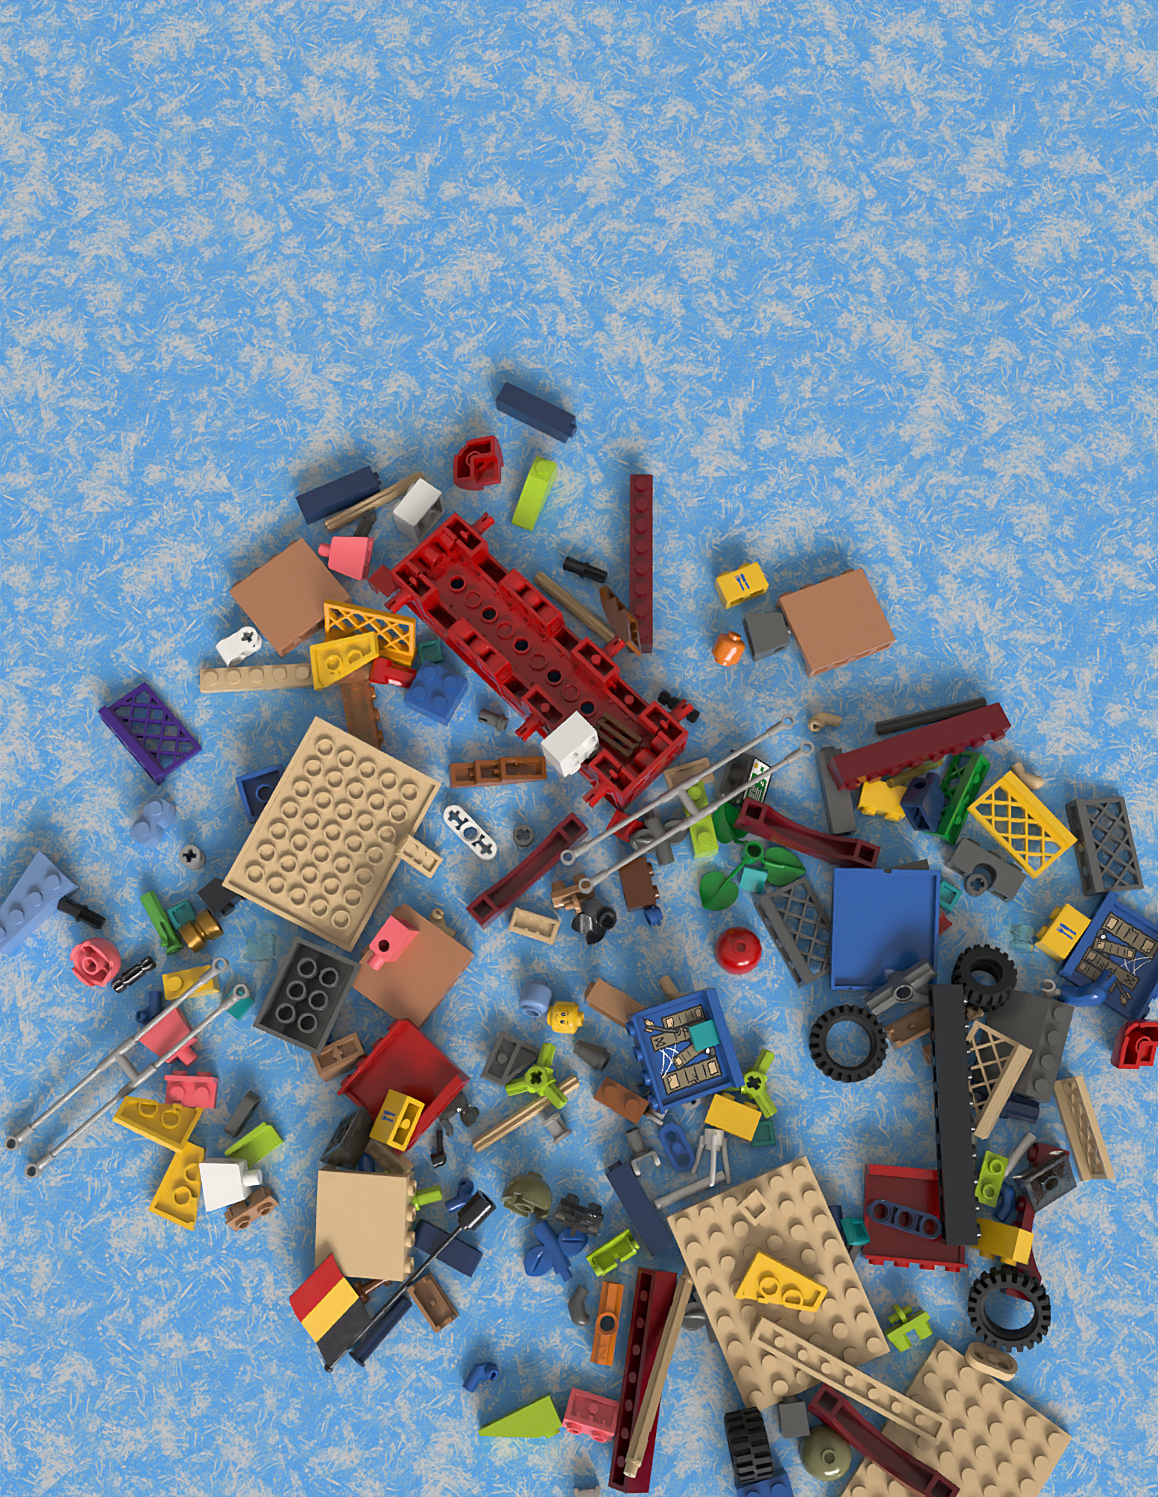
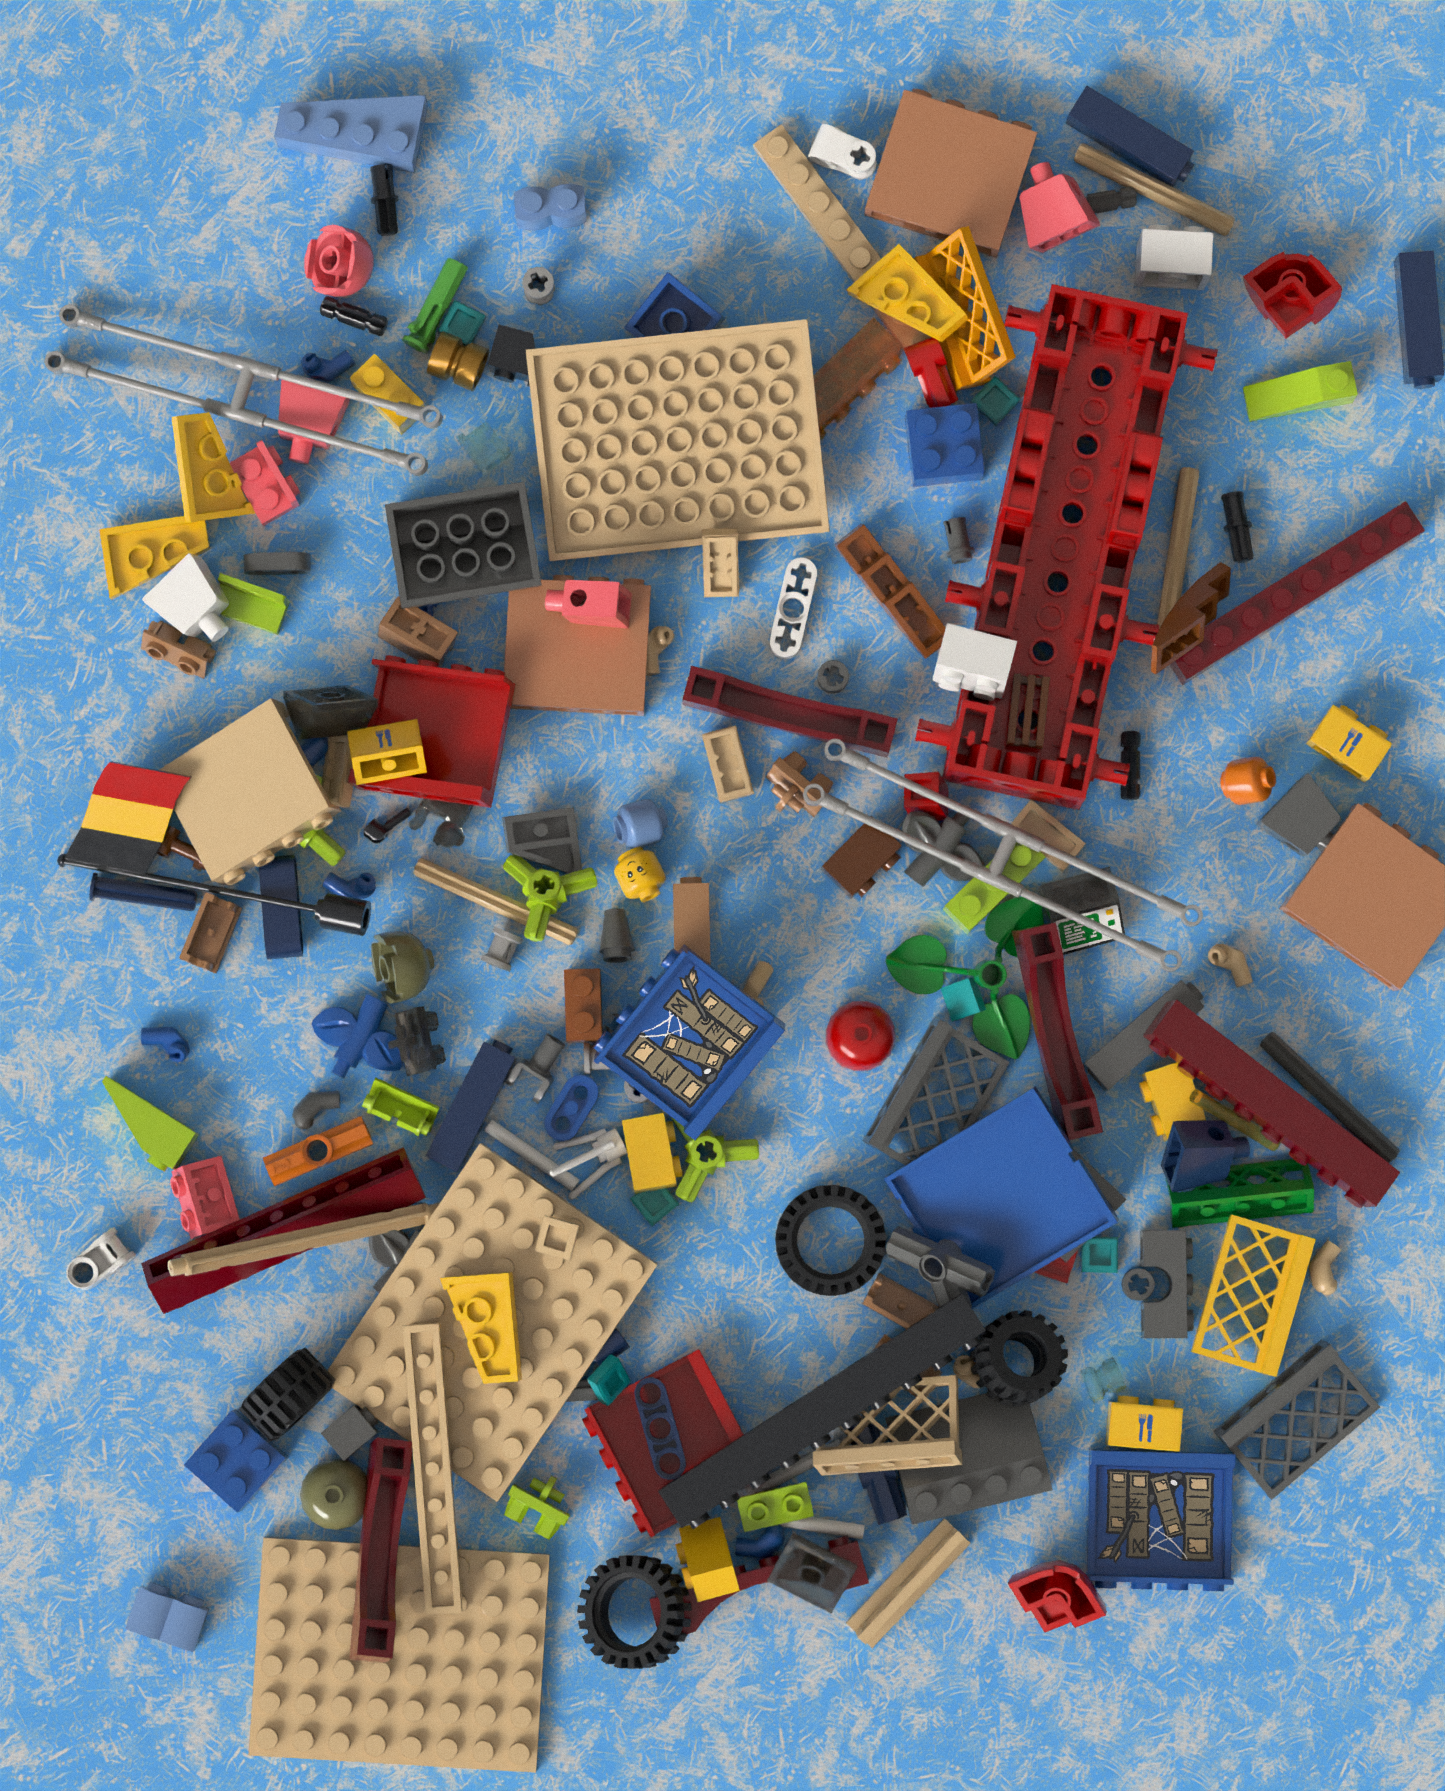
camera: 55 degrees right, 10 degrees up
(137, 748) = (631, 109): dark purple fence -> none
(241, 1007) = (397, 475): teal tile -> none
(382, 581) = (1045, 273): red panel -> none
(591, 920) = (778, 830): black plate -> none
(653, 915) = (836, 903): blue plate -> none
(703, 1035) = (721, 1053): teal tile -> none
(991, 1361) = (561, 1628): tan plate -> none
(1082, 996) = (1077, 1496): blue arm -> none

